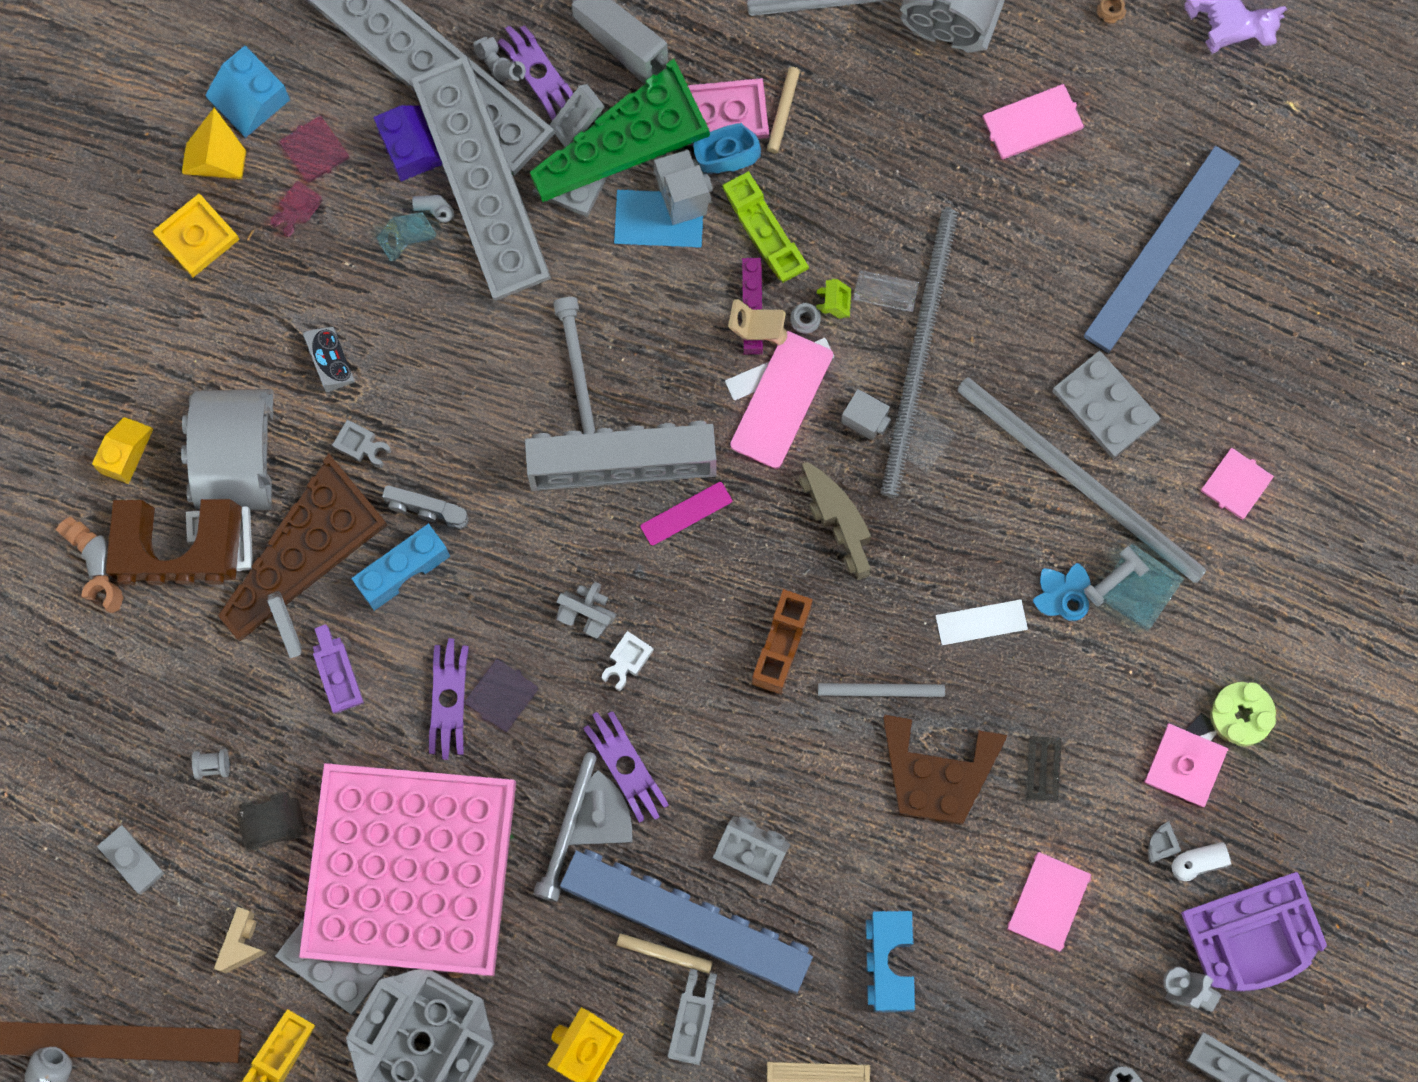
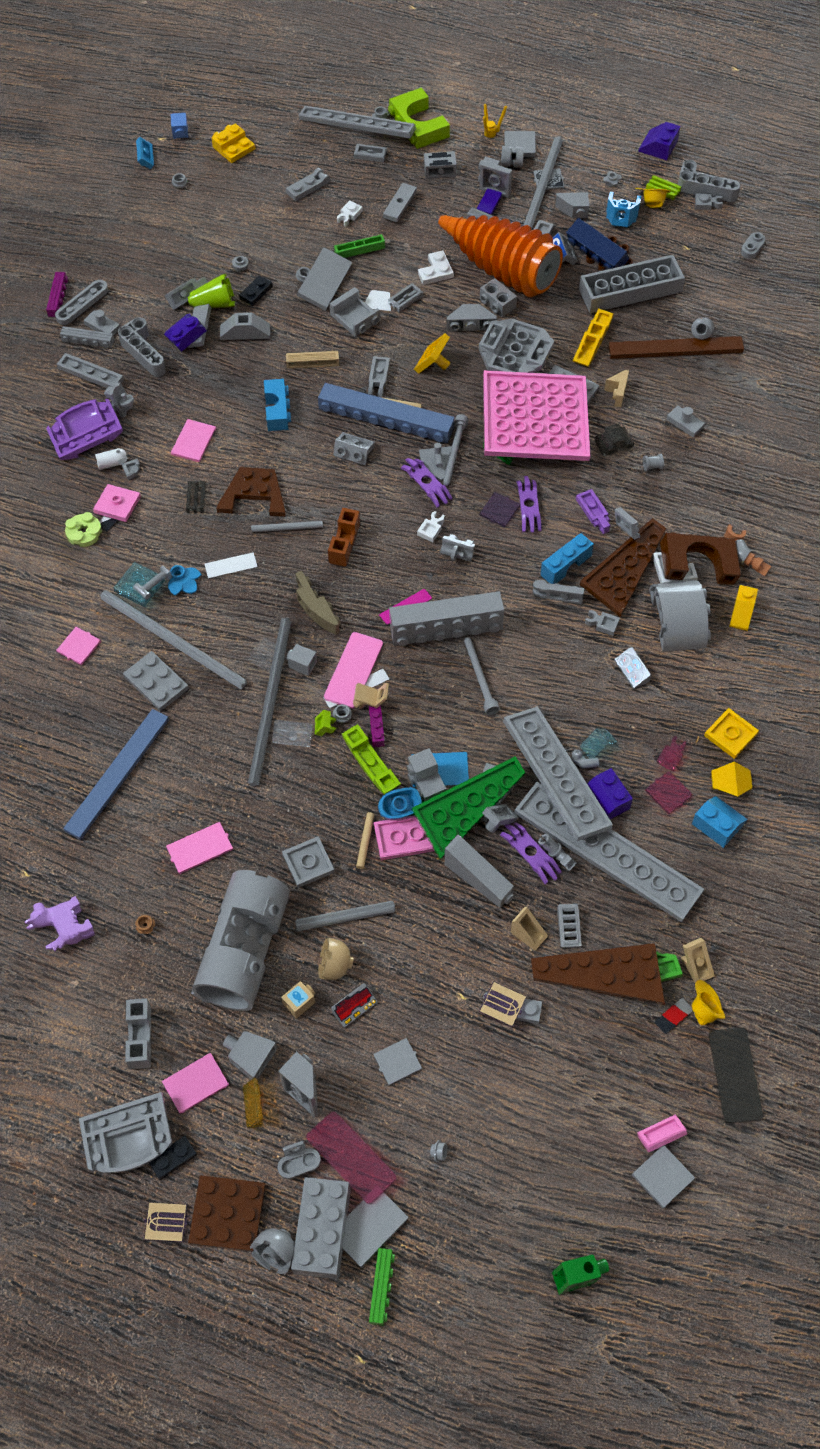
camera: 175 degrees right, 15 degrees down
(870, 79) = (308, 862): none -> light grey plate

